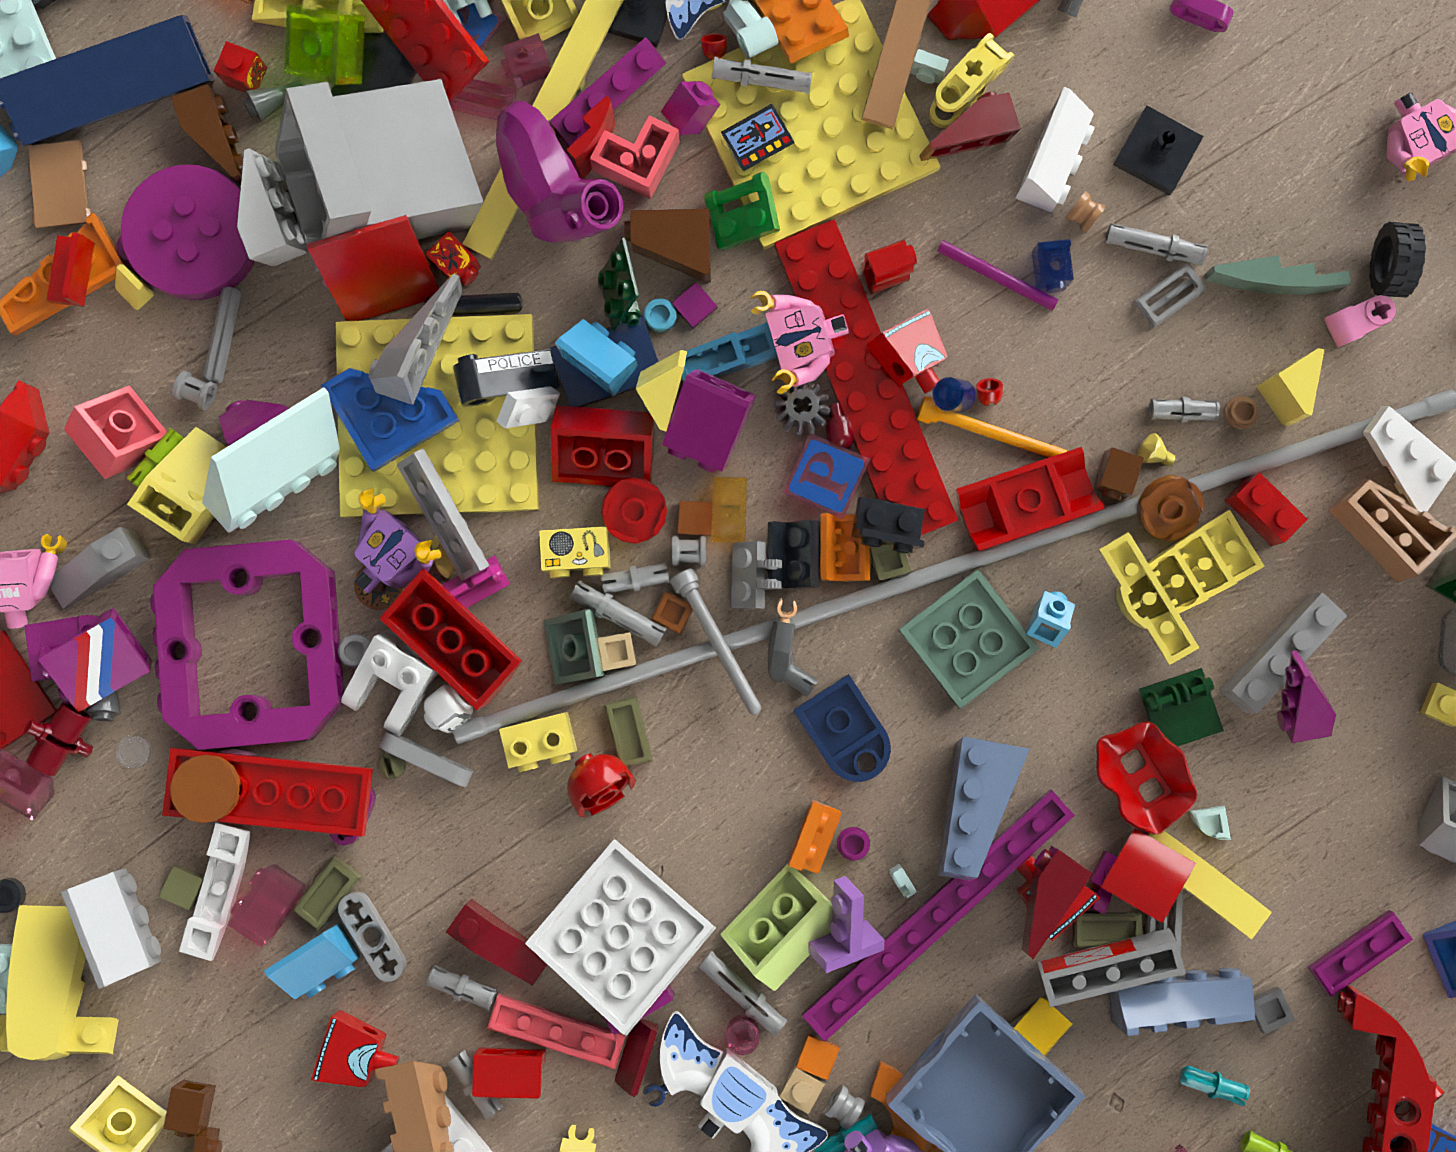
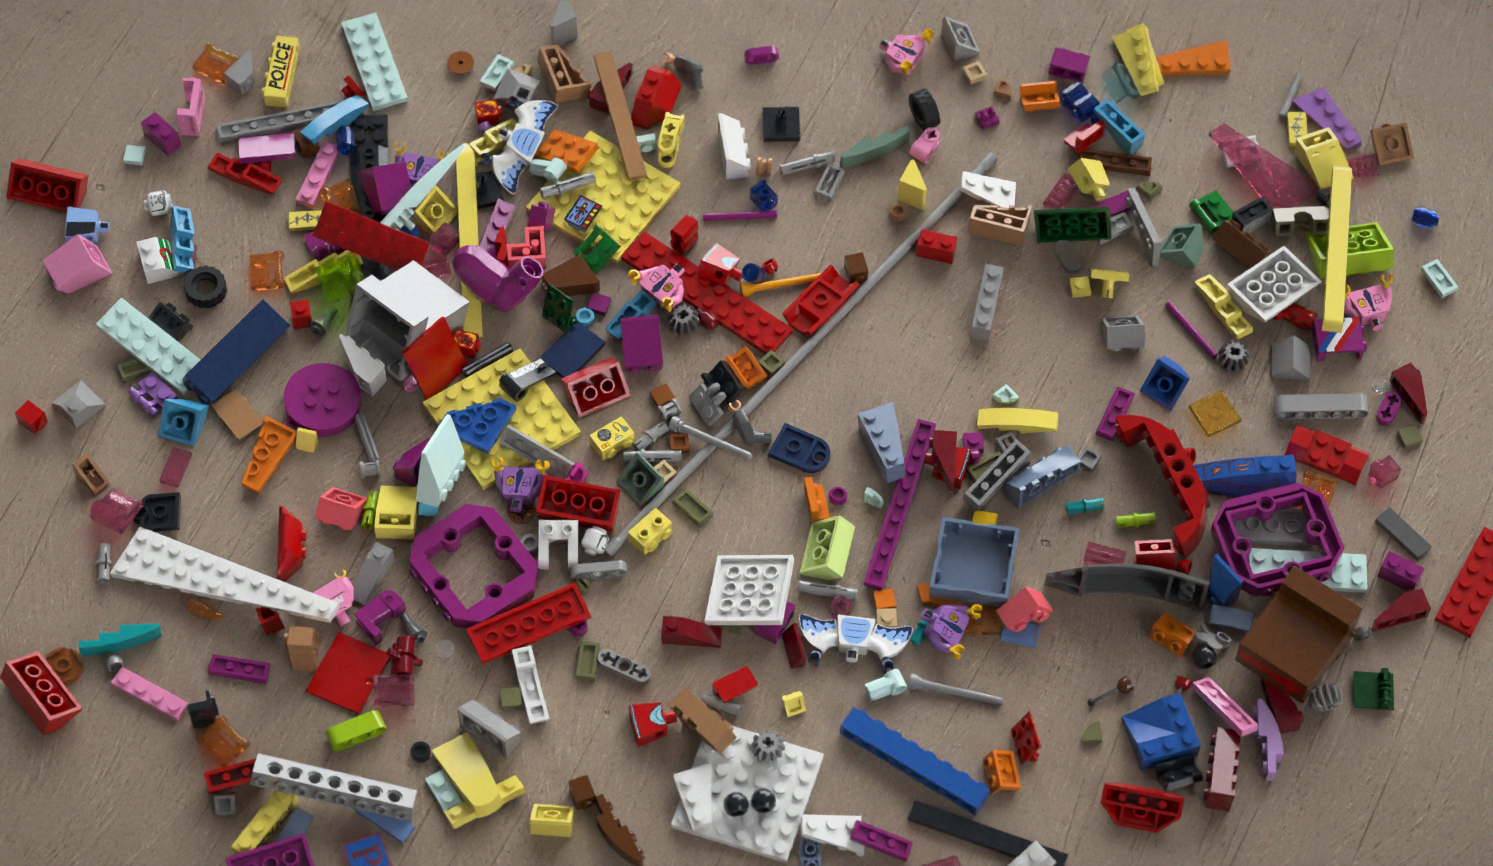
camera: 35 degrees left, 25 degrees down
(70, 270) = (273, 444): red panel -> none
(95, 662) = (401, 609): panel -> none
(203, 119) = (301, 350): reddish brown slope -> none
(205, 788) = (497, 633): dark orange tile -> none
(266, 905) = (561, 678): clear pink brick -> none
(314, 963) = (603, 687): dark azure slope -> none
(411, 352) = (475, 386): light grey wedge -> none
(461, 987) = (671, 666): light grey pin -> none
(528, 407) = (549, 382): white plate -> none
(556, 1031) = (753, 658): coral tile -> none
(597, 356) = (568, 345): dark azure slope -> none
(598, 783) = (693, 532): red cylinder -> none
(634, 510) = (630, 405): red tile -> none
(660, 385) = (610, 339): light yellow slope -> none
(714, 45) = (534, 187): red hinge -> none
(729, 509) = (678, 383): clear yellow slope -> none
(826, 476) = (715, 342): piece -> none
(844, 1107) = (912, 612): light grey wheel -> none
(850, 935) = (857, 522): medium lavender bracket -> none
(888, 523) = (759, 343): black bracket -> none
(968, 639) = (832, 377): sand green plate -> none
(984, 124) = (689, 153): dark red slope -> none
(1053, 611) = (866, 341): medium azure brick -> none
(1148, 875) = (987, 428): red slope -> none
(1154, 451) = (868, 250): light yellow rock -> none
(1162, 761) = (964, 381): red piece -> none
(1170, 507) = (891, 269): dark orange tile -> none
(1179, 579) = (916, 297): light yellow slope -> none
(1183, 707) = (957, 353): dark green hinge -> none
(1184, 409) = (859, 230): light grey pin -> none
(1305, 707) = (1012, 315): magenta slope -> none

